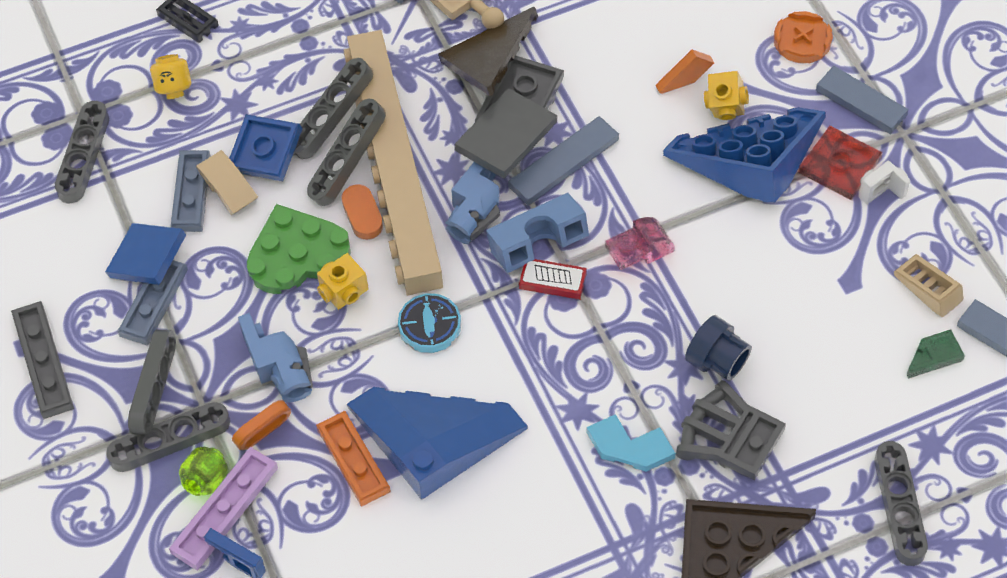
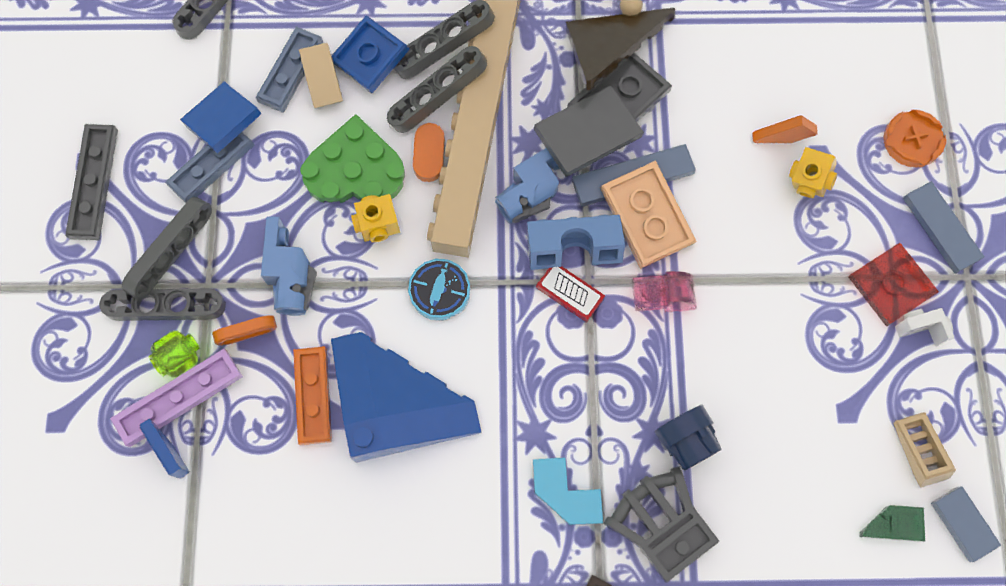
camera: 20 degrees right, 15 degrees up
(595, 185) = (648, 214): none -> light nougat tile
(752, 157) = (812, 245): blue slope -> none

